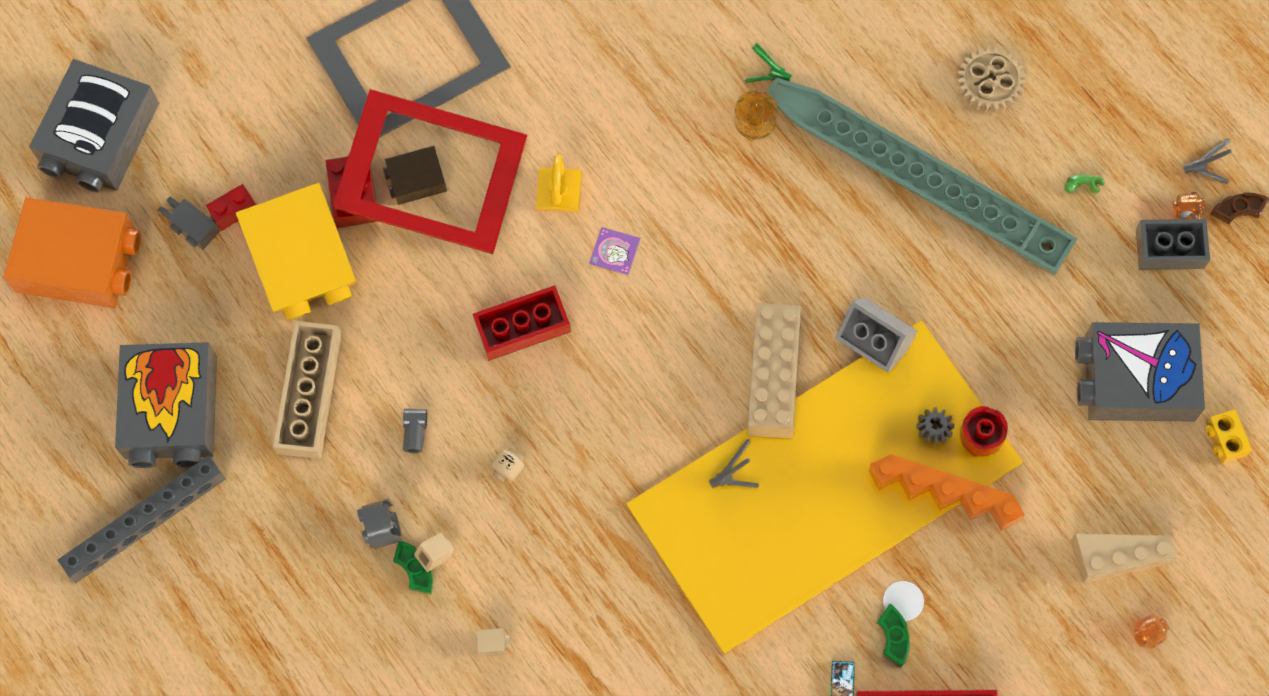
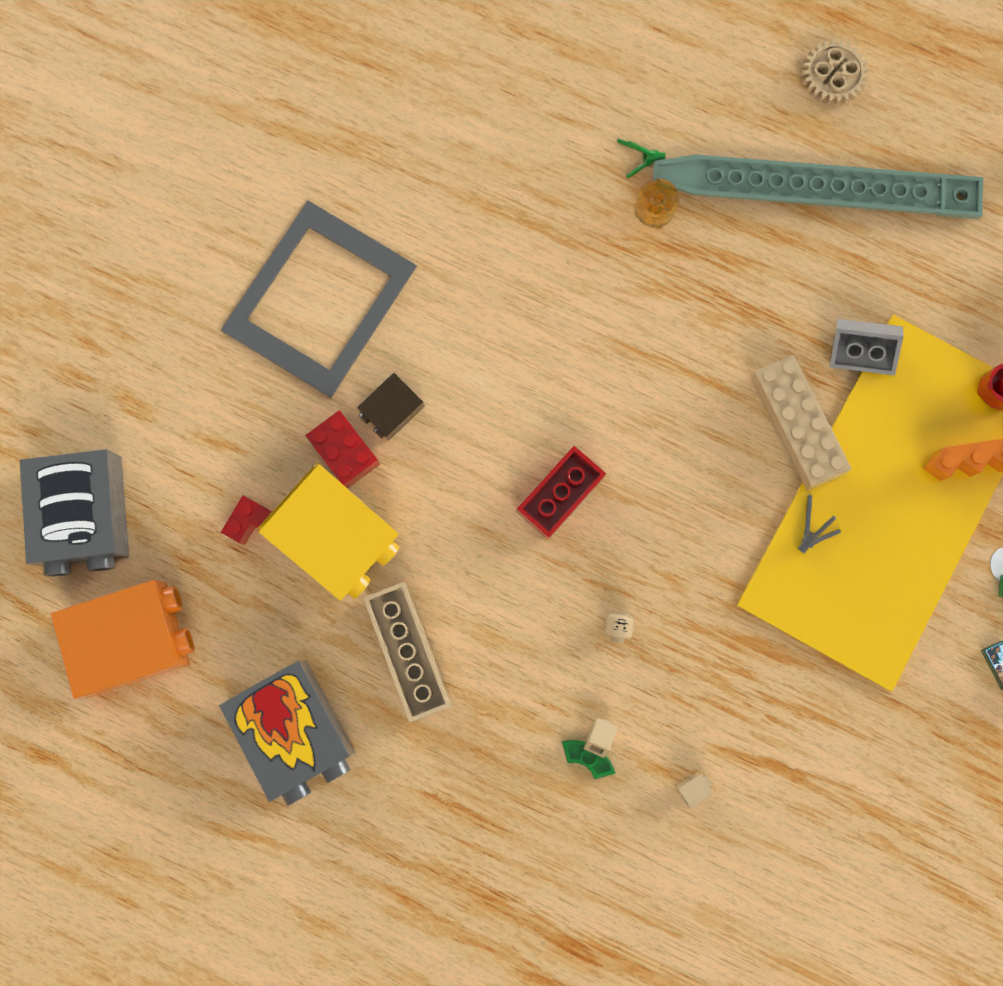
camera: 30 degrees left, 10 degrees up
(141, 519) = (325, 847): dark grey brick -> none
(190, 222) = (214, 552): dark grey hinge -> none
(364, 148) = (336, 411): red door -> none
(380, 524) = (540, 739): dark grey brick -> none
(414, 423) = (518, 633): dark grey piece -> none
(558, 187) = (521, 354): yellow tile -> none
(614, 250) = (600, 385): sticker -> none
(942, 431) = (960, 402): dark grey gear -> none
(1077, 180) = (965, 121): bright green piece -> none

